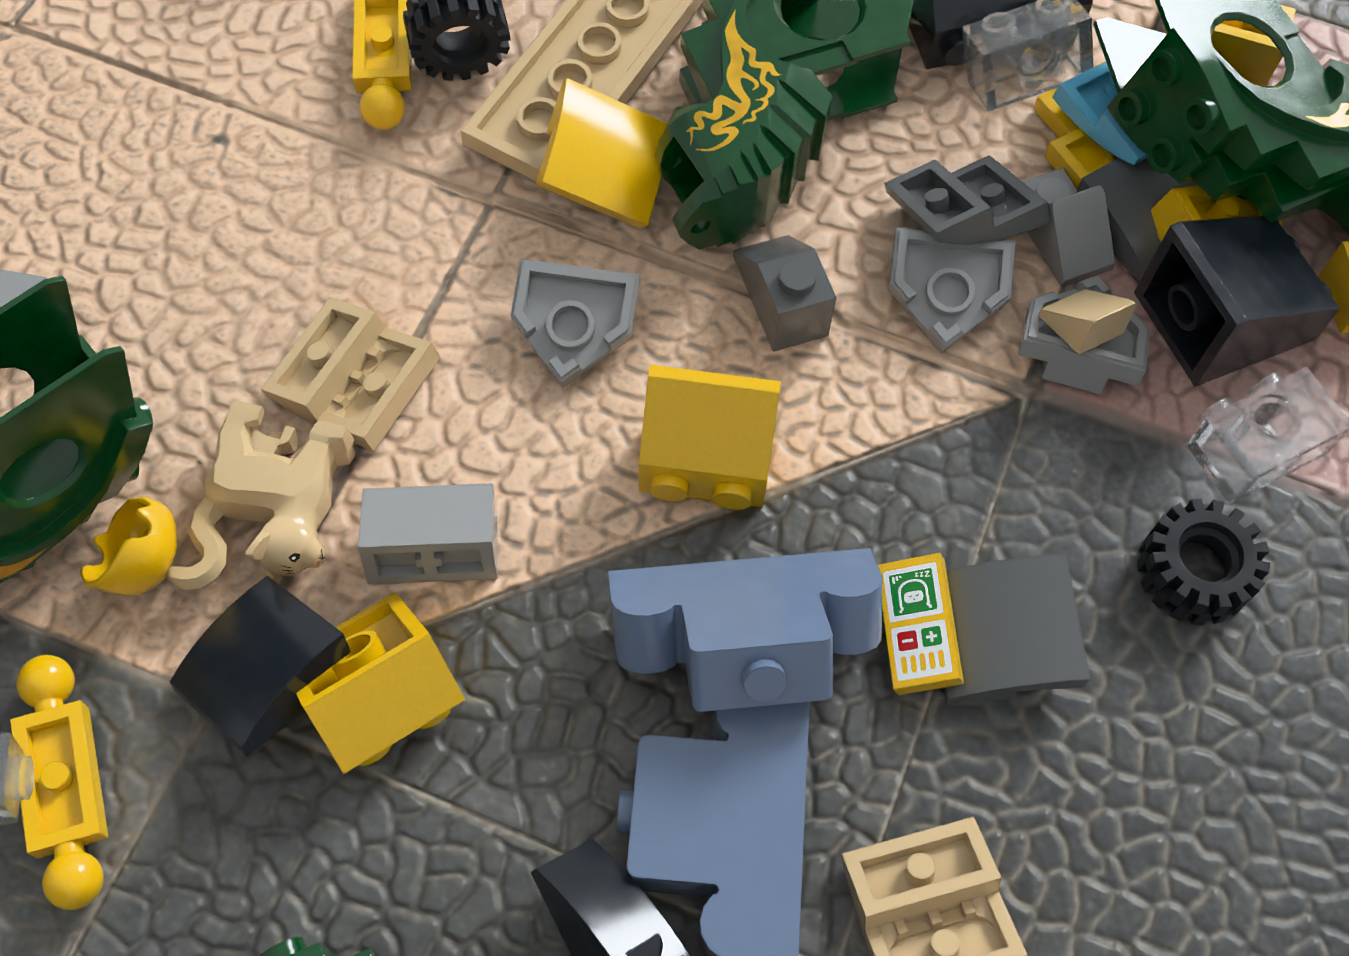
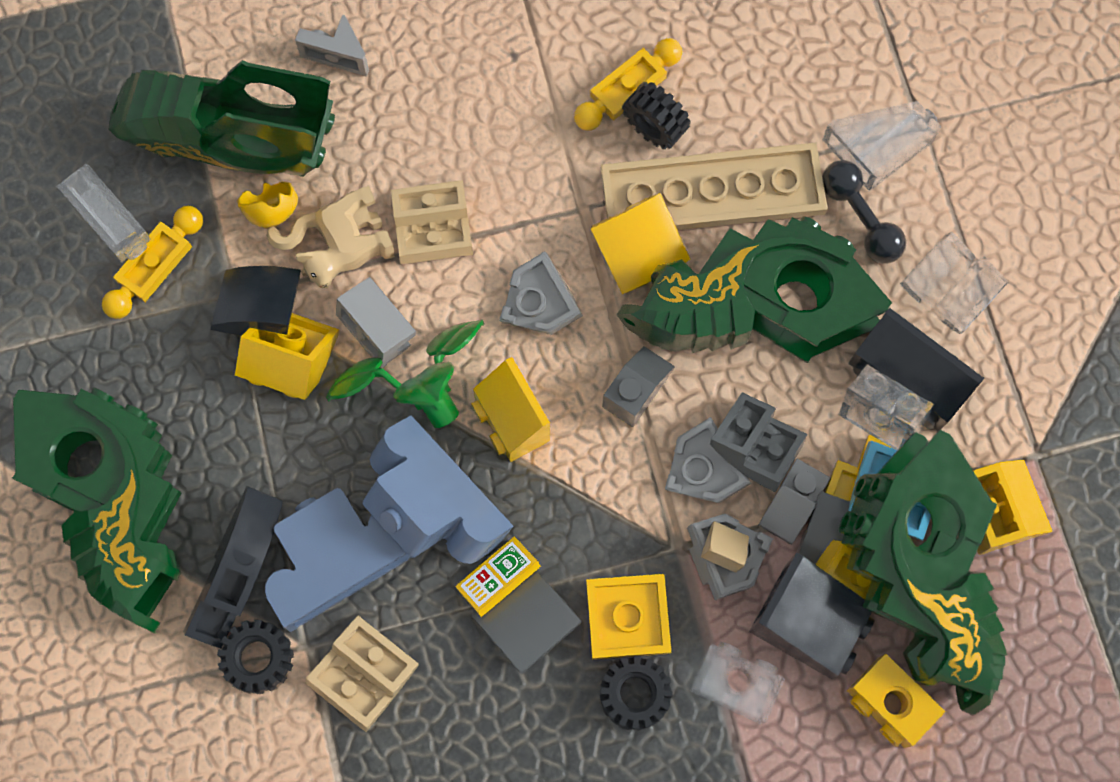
camera: 55 degrees right, 10 degrees up
(612, 483) = (426, 390): none -> green plant
(1090, 502) = (628, 616): none -> yellow plate

